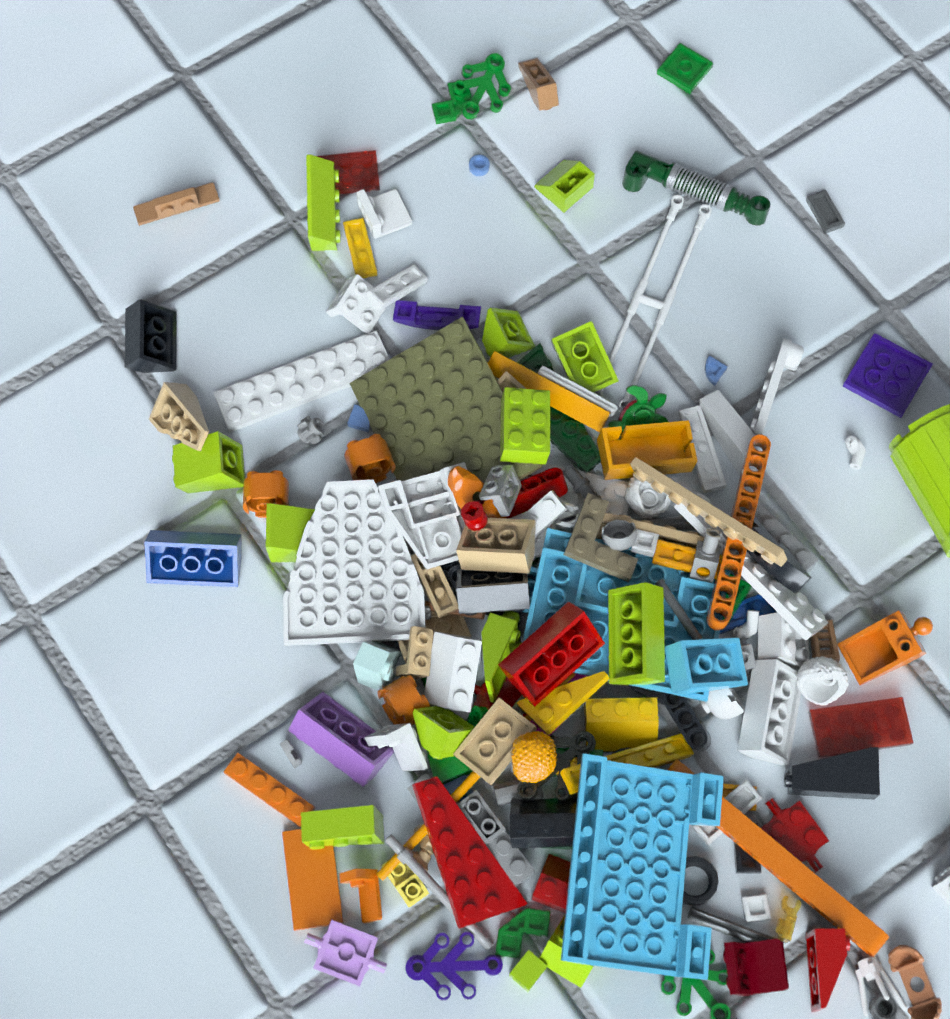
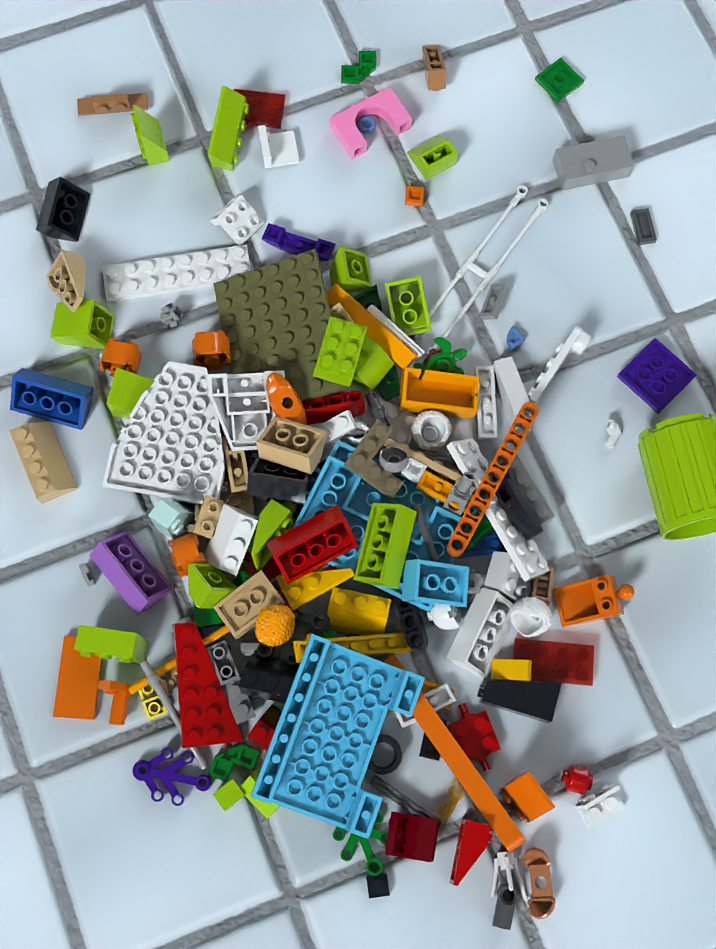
camera: 10 degrees right, 5 degrees up
(203, 632) = (43, 460): none -> tan slope
(232, 232) = (149, 136): none -> lime slope
(267, 789) = (62, 598): orange plate -> none
(345, 953) = (88, 745): lavender plate -> none
(359, 419) = (213, 315): medium blue tile -> none
(360, 248) = (251, 174): yellow tile -> none
(397, 287) = (271, 212): white tile -> none
(404, 743) = (176, 584): white bracket -> none
(479, 517) = (283, 418): red wheel -> none
(484, 84) = (388, 57): green plant -> none
(491, 137) = (383, 104): none -> bright pink arch
(502, 487) = (308, 399): light grey bracket -> none
(556, 233) = (414, 196): none -> orange plate
(564, 435) = (372, 364): none -> lime slope
(680, 332) = (494, 301): none -> light grey plate
(693, 183) = (539, 181): dark green piece -> none
(712, 515) = (473, 463): tan plate -> none
(749, 628) = (483, 559): white arm -> none
(750, 151) = (593, 162): none -> light grey brick
(755, 908) = (427, 788): white tile -> none
(816, 746) = (511, 669): none -> yellow tile
(876, 887) = (526, 797): none -> orange slope
(926, 855) = (577, 779): none -> red head

